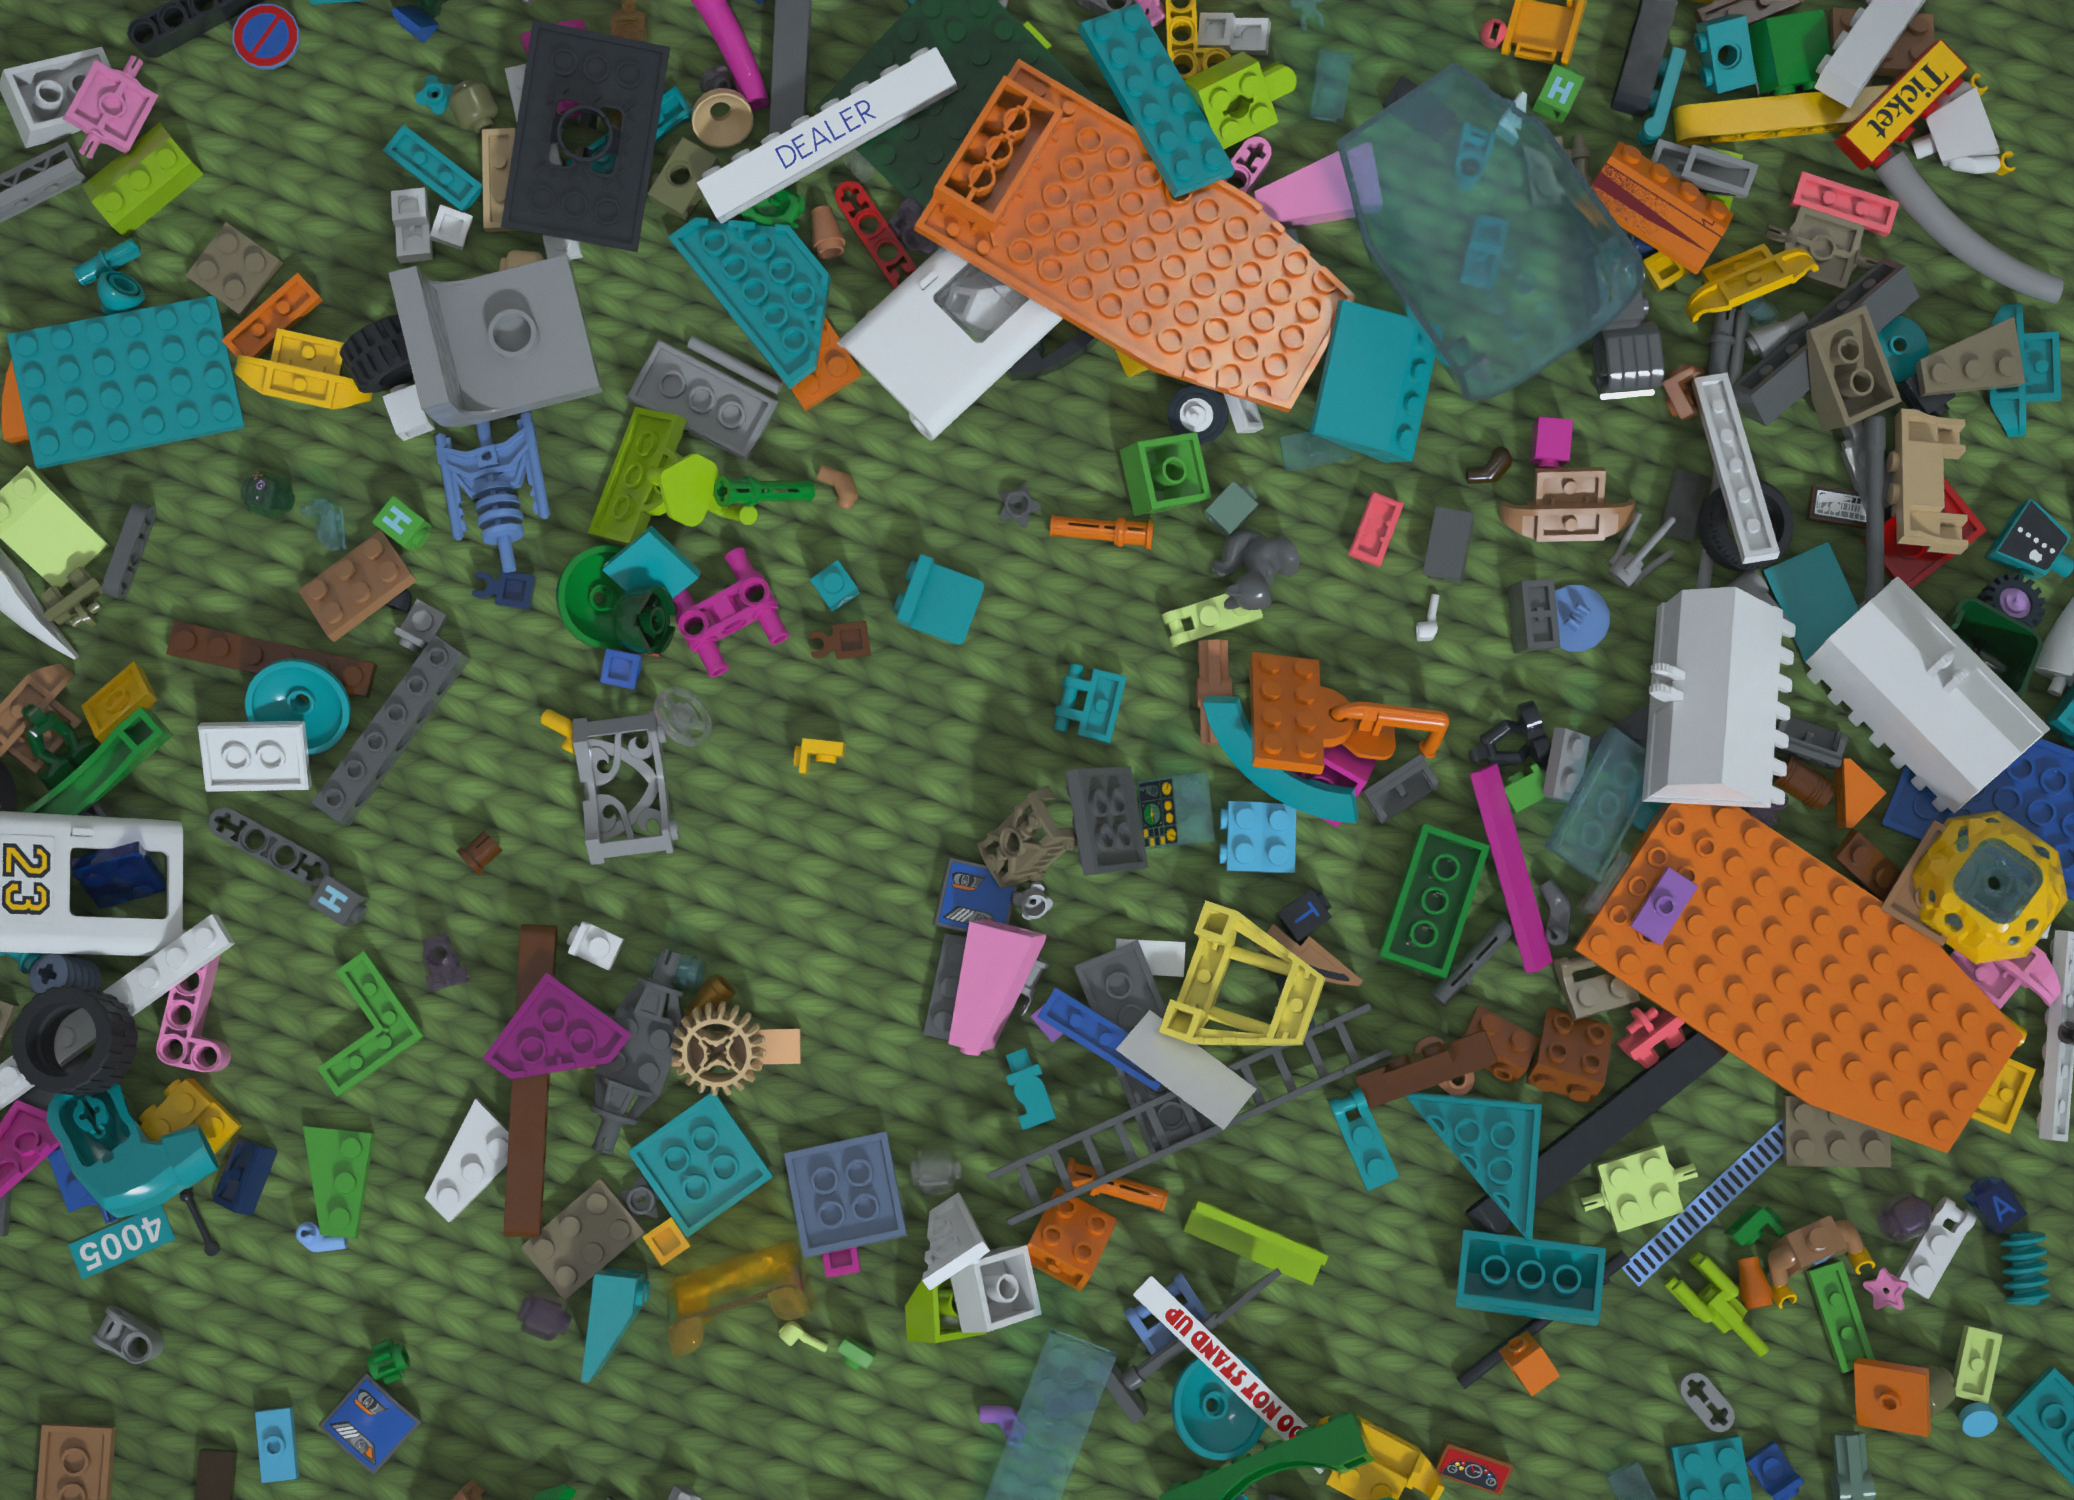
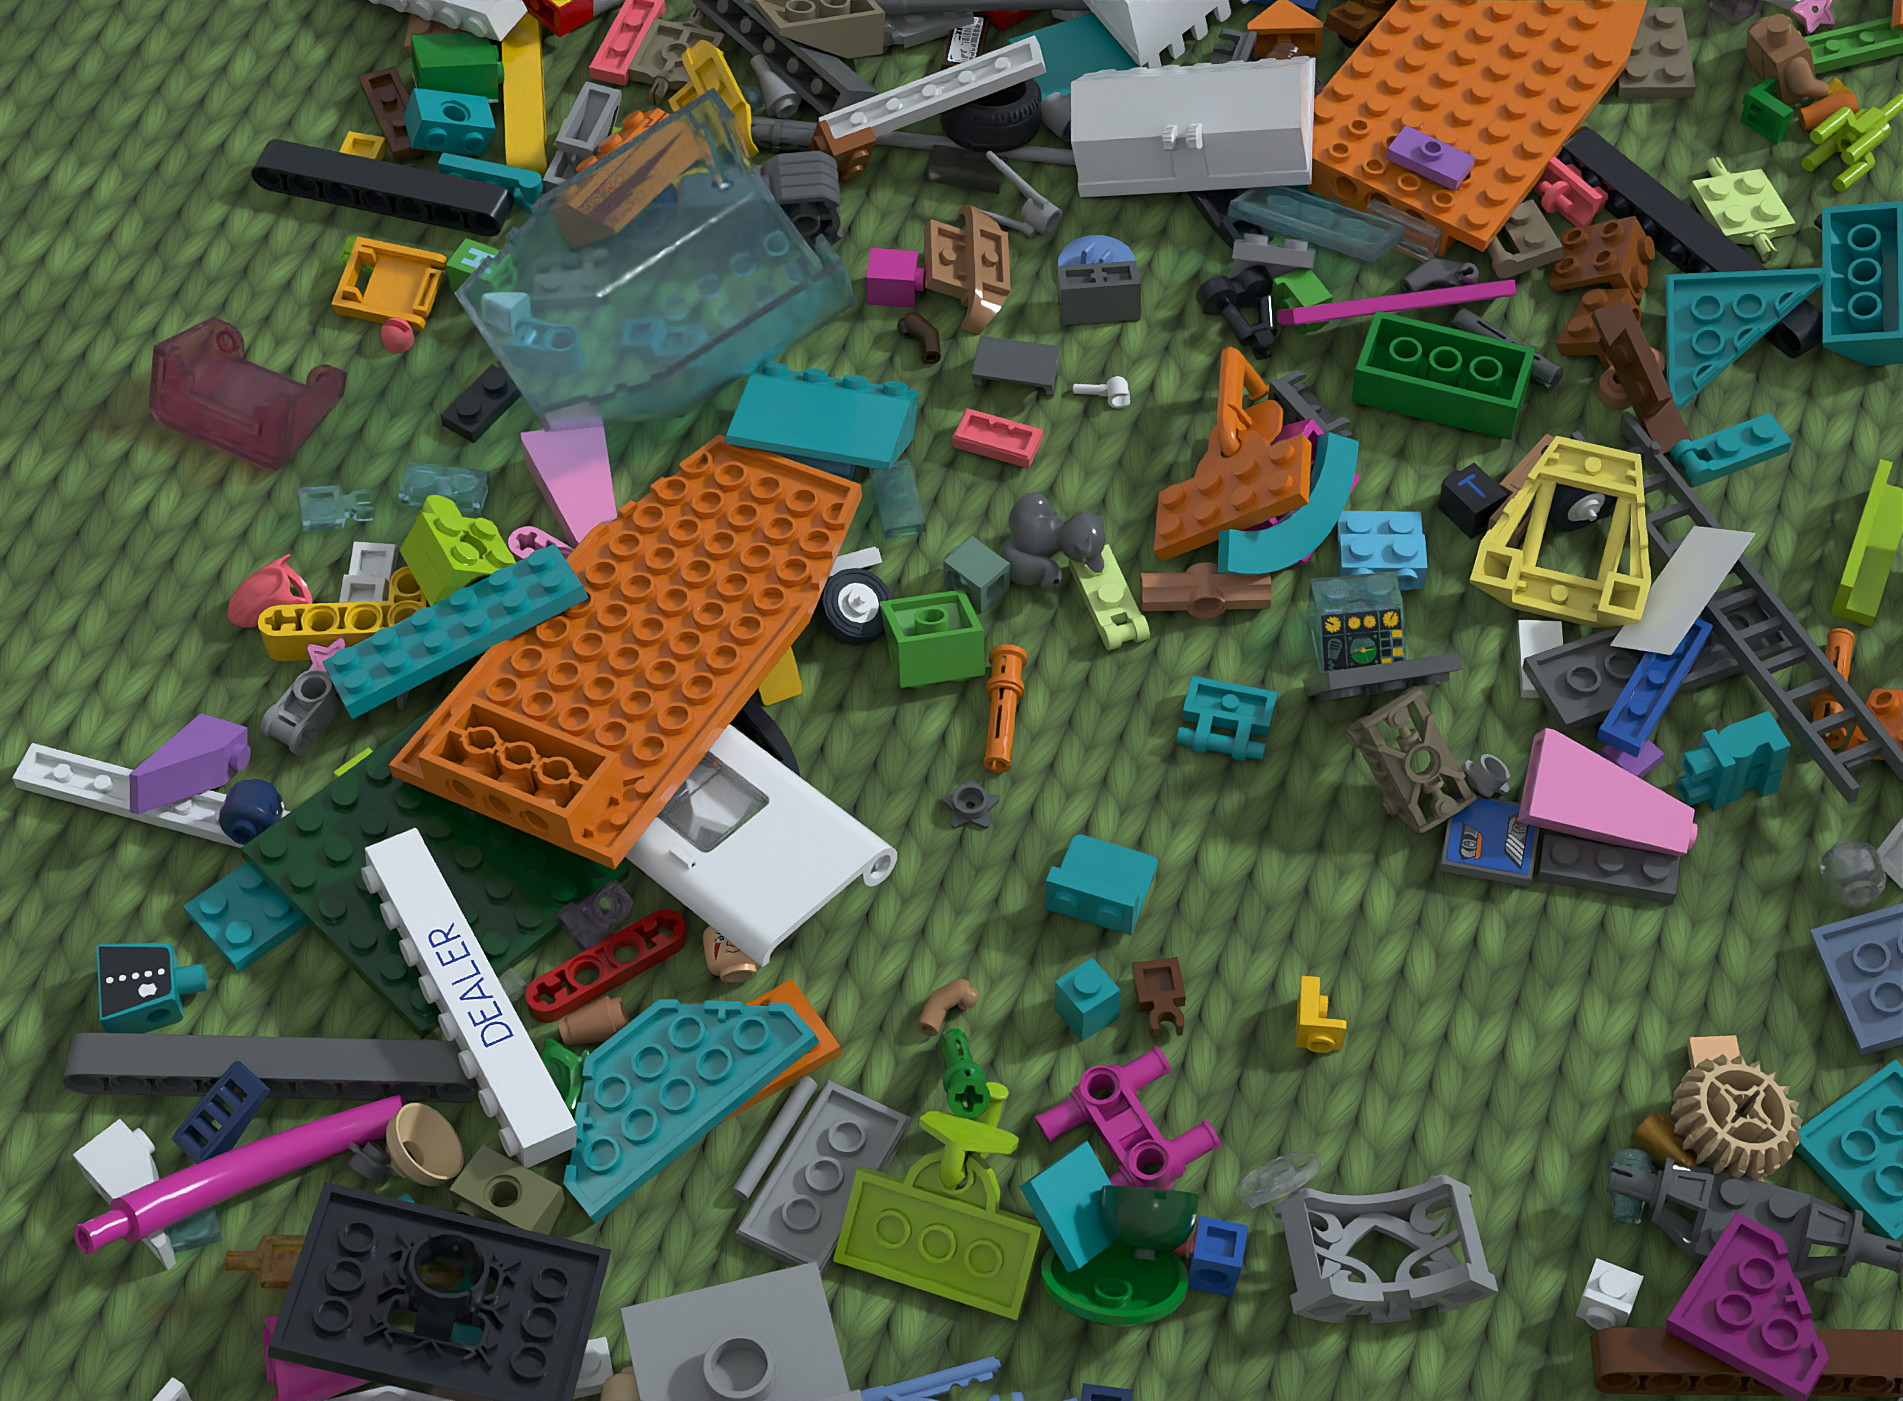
camera: 90 degrees left, 30 degrees down
(561, 725) = (1300, 1342): yellow arm -> none
(1706, 1206) = (1742, 153): light blue sticker -> none

